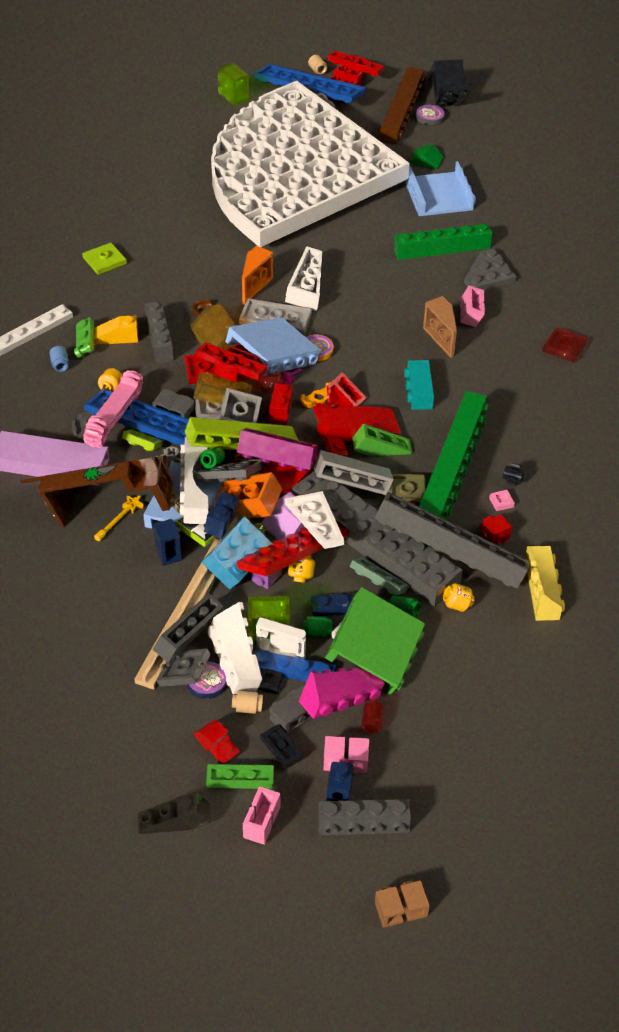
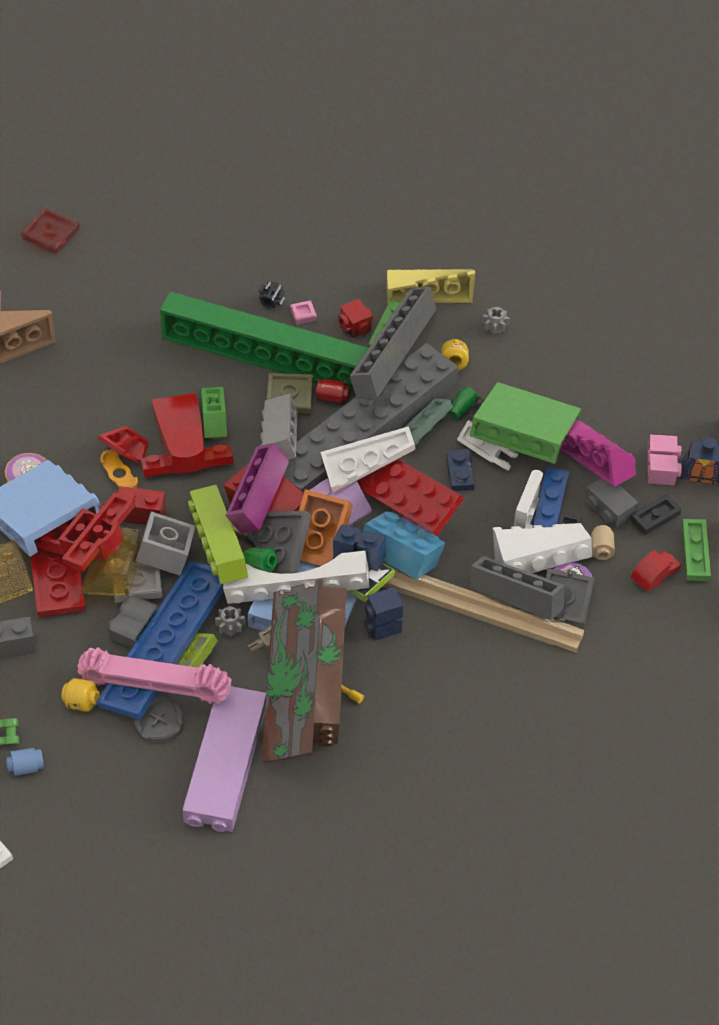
camera: 90 degrees left, 5 degrees up
(267, 607) = (495, 510): clear neon green brick -> none
(317, 626) = (496, 480): green brick -> none
(372, 716) = (616, 434): clear red brick -> none
(419, 384) = (113, 369): teal brick -> none
(508, 630) = (495, 320): none -> light grey gear

